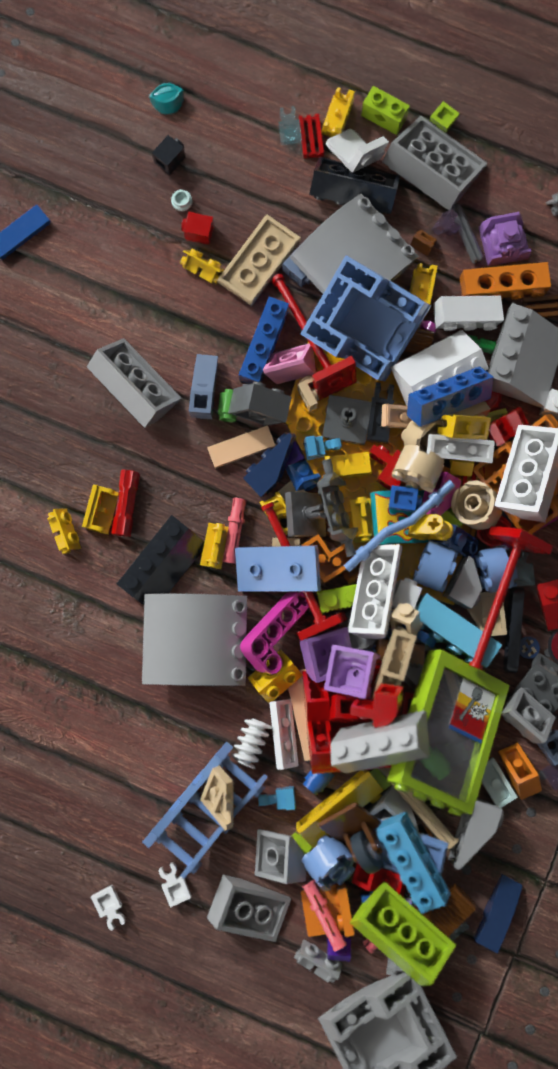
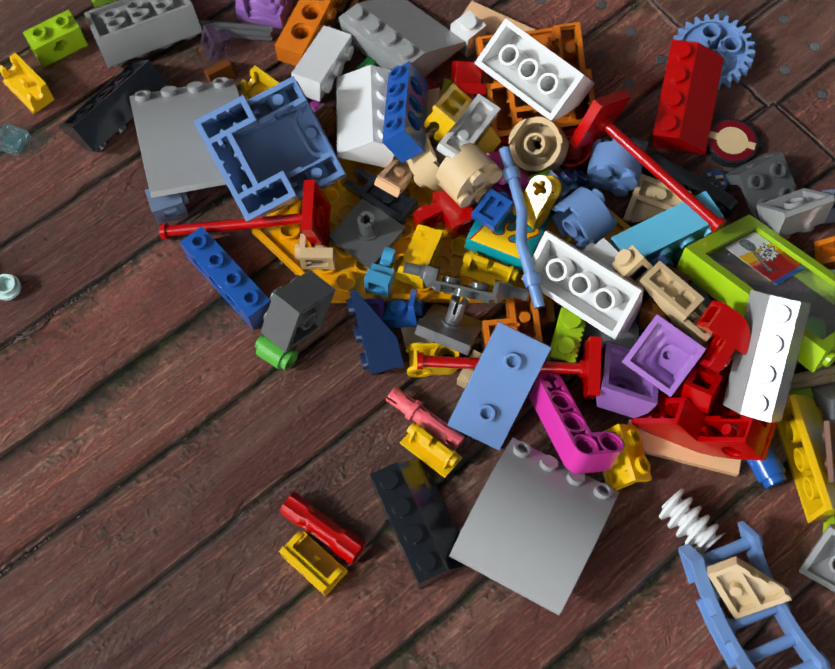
camera: 60 degrees left, 15 degrees down
(61, 521) = (303, 619): yellow hinge -> none
(133, 382) = (181, 446): light grey slope -> none
(194, 261) = (86, 305): yellow hinge -> none
(198, 228) = (50, 283): red brick -> none
(203, 387) = (238, 367): sand blue slope -> none
(241, 446) = (330, 364): light nougat tile -> none
(259, 260) = (130, 240): tan plate -> none
(283, 798) = (774, 519): dark azure piece -> none
(284, 734) = (696, 481): white plate -> none
(291, 364) = (270, 258): bright pink slope -> none
(309, 119) = (33, 114): red tile -> none
(354, 151) = (80, 87): white bracket -> none
(464, 585) = (621, 201): light grey slope -> none

